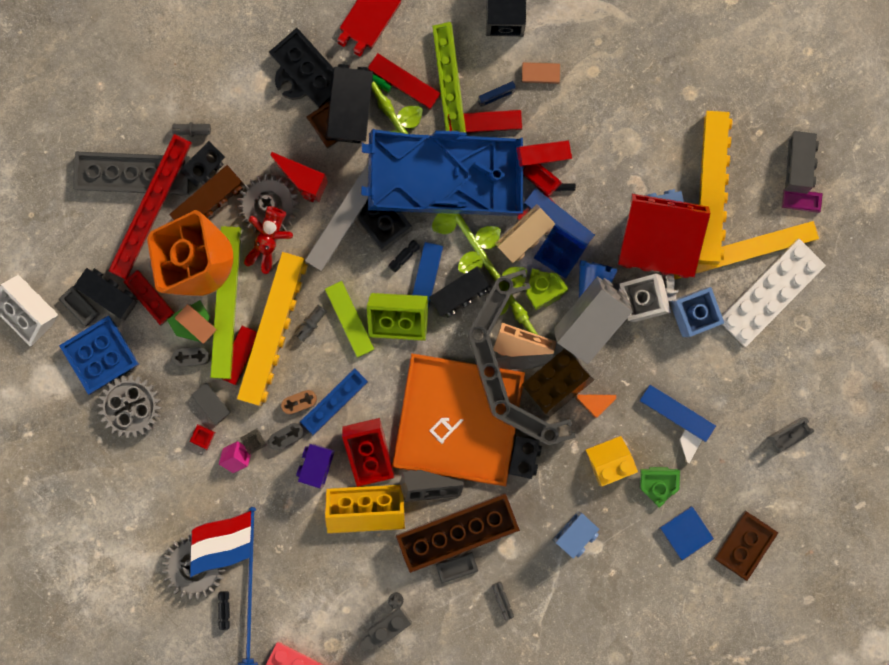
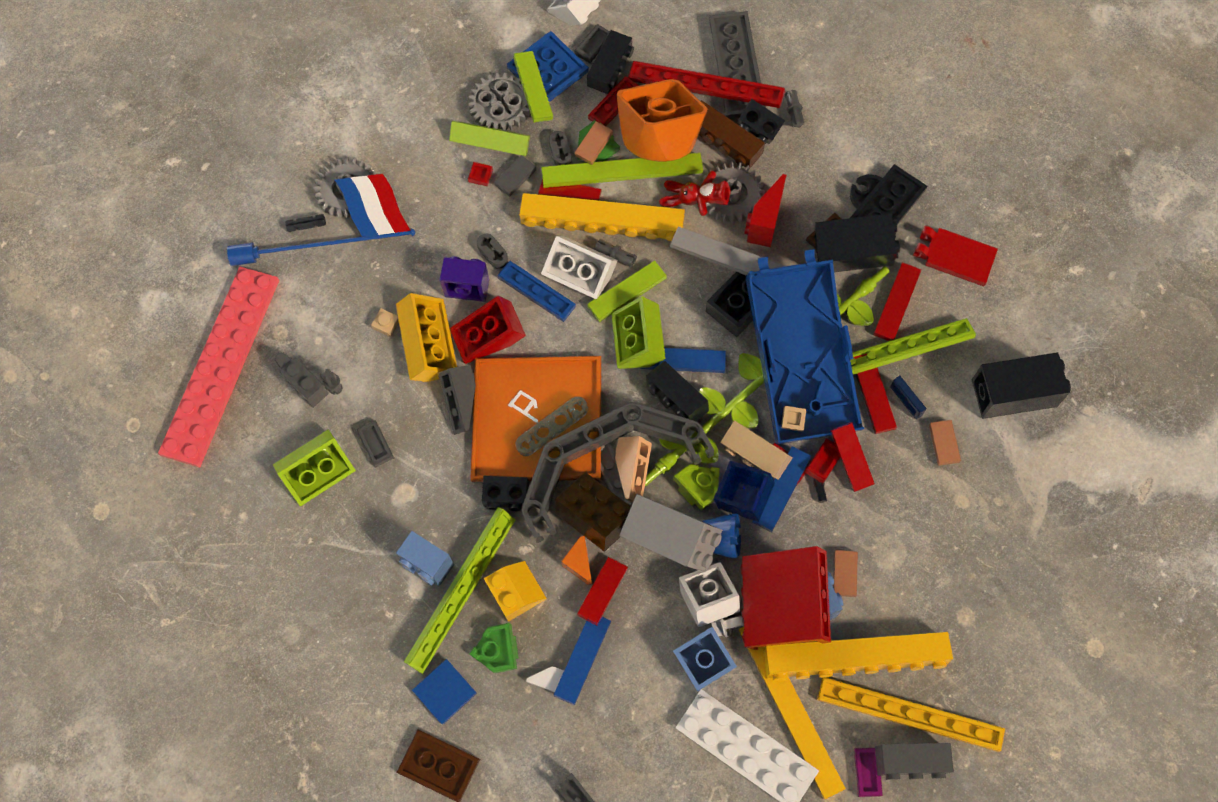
camera: 85 degrees right, 15 degrees down
(121, 372) = (533, 86): none -> lime tile
(167, 423) = (489, 138): none -> lime tile
(234, 457) = (463, 205): dark pink panel -> none
(253, 441) = (481, 218): clear smoke tile -> none
(301, 406) = (534, 255): medium nougat beam -> none
(320, 358) = (578, 266): none -> white slope
(340, 545) = (385, 322): none -> tan plate
(381, 83) = (889, 278): green animal -> none
(404, 255) = (706, 333): black axle -> none
(457, 532) = (413, 434): reddish brown brick -> none
(472, 625) = (314, 467): none -> lime slope
(474, 405) = (549, 423): none -> clear light blue beam
(502, 195) = (793, 418): none -> tan plate
(503, 601) = (343, 497): dark grey axle -> none
(604, 508) = (459, 590): none -> lime tile
(624, 387) = (602, 591): none -> red tile
(640, 181) = (845, 573): none -> nougat tile
(762, 156) = (911, 714): none -> yellow tile

